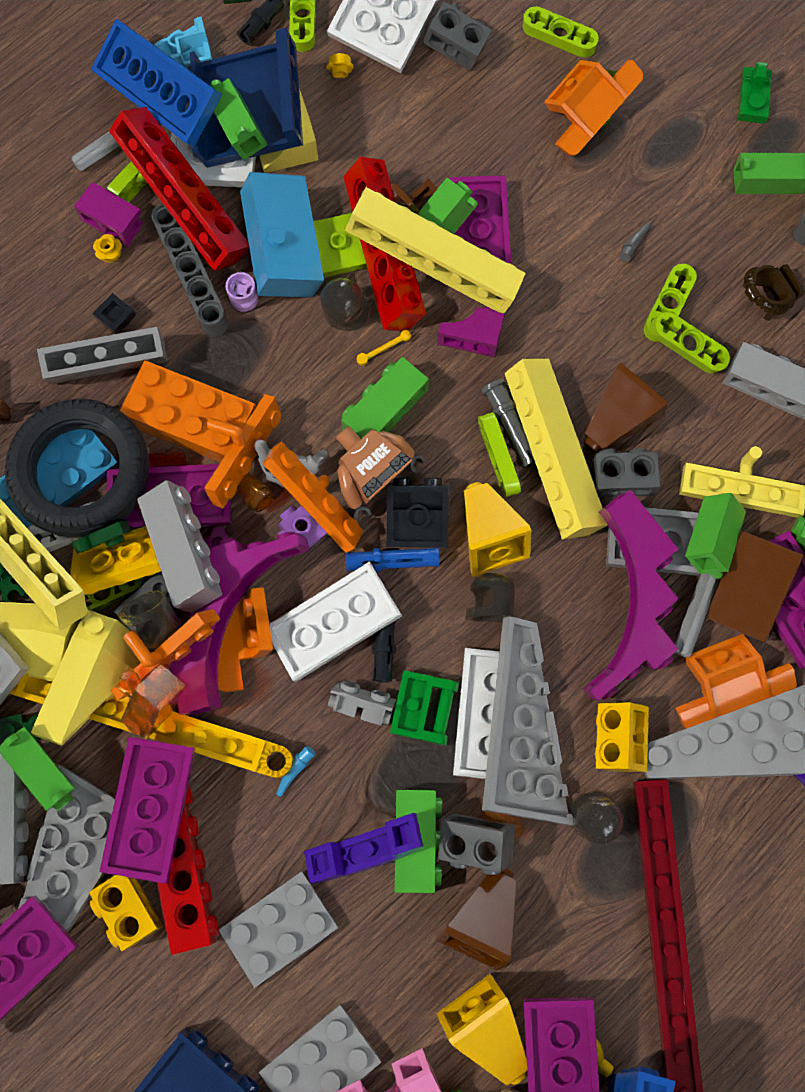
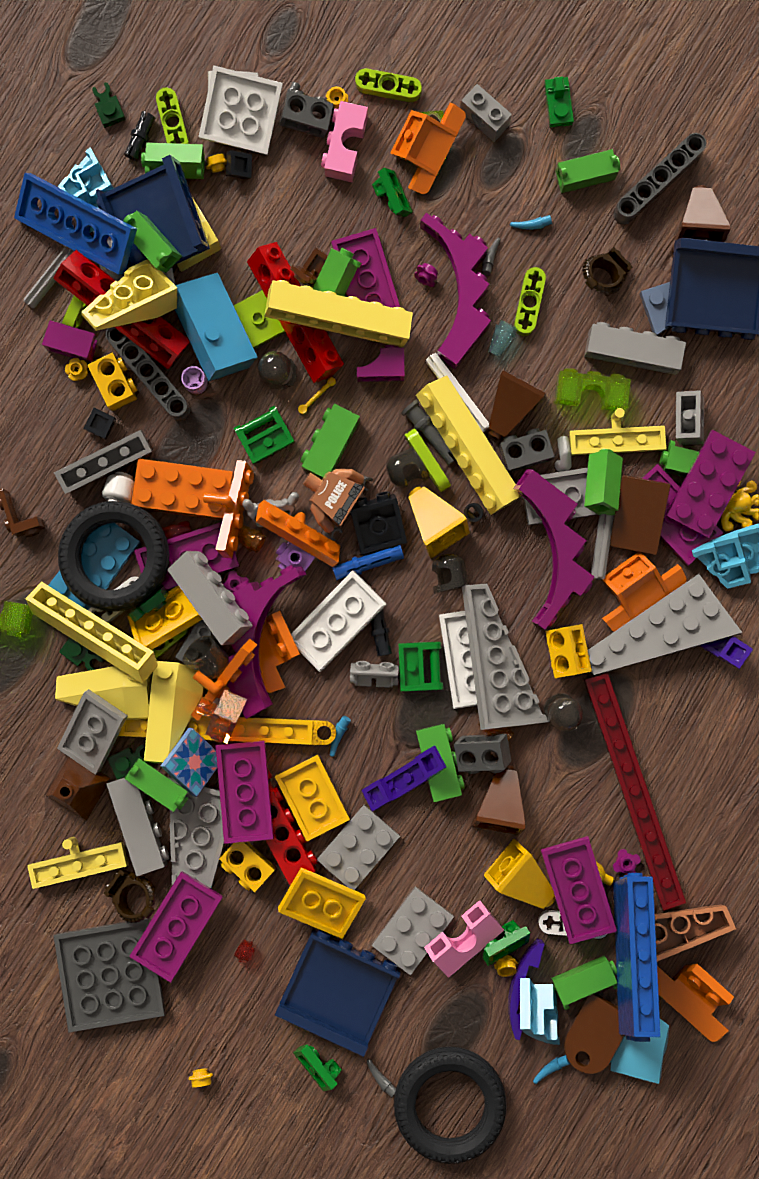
camera: 10 degrees left, 10 degrees up
(85, 1031) = (244, 951): none -> clear red plate
(91, 752) = (191, 762): none -> tile
(111, 389) = (119, 487): none -> white head
(141, 271) = (108, 384): none -> yellow brick
(203, 173) = (136, 297): none -> light yellow wedge
(206, 992) = (321, 903): none -> yellow plate
(236, 844) = (312, 797): none -> yellow plate
(307, 384) = (268, 441): none -> green plate
(311, 49) = (189, 155): none -> brick
(364, 72) = (239, 165): none -> black plate
(470, 456) = (405, 468): none -> clear smoke helmet
(499, 25) = (336, 92): none -> yellow plate
(504, 58) = (349, 122): none -> bright pink arch
(533, 135) = (389, 185): none -> green hinge
(541, 351) = (441, 370): none -> white axle
(548, 528) = (470, 515): none -> black hinge
(552, 241) = (426, 274): none -> magenta plate
(591, 306) = (472, 286): none -> magenta arch
(628, 332) = (502, 337): none -> clear light blue cone
(632, 1041) = (624, 856): none -> magenta plate
(667, 83) = (485, 112): none -> light grey brick
(673, 490) = (564, 463): none -> light grey arm
(694, 218) = (537, 223): none -> dark azure helmet
(702, 340) = (569, 332): lime beam -> none
(747, 425) = (612, 389): none -> clear neon green arch

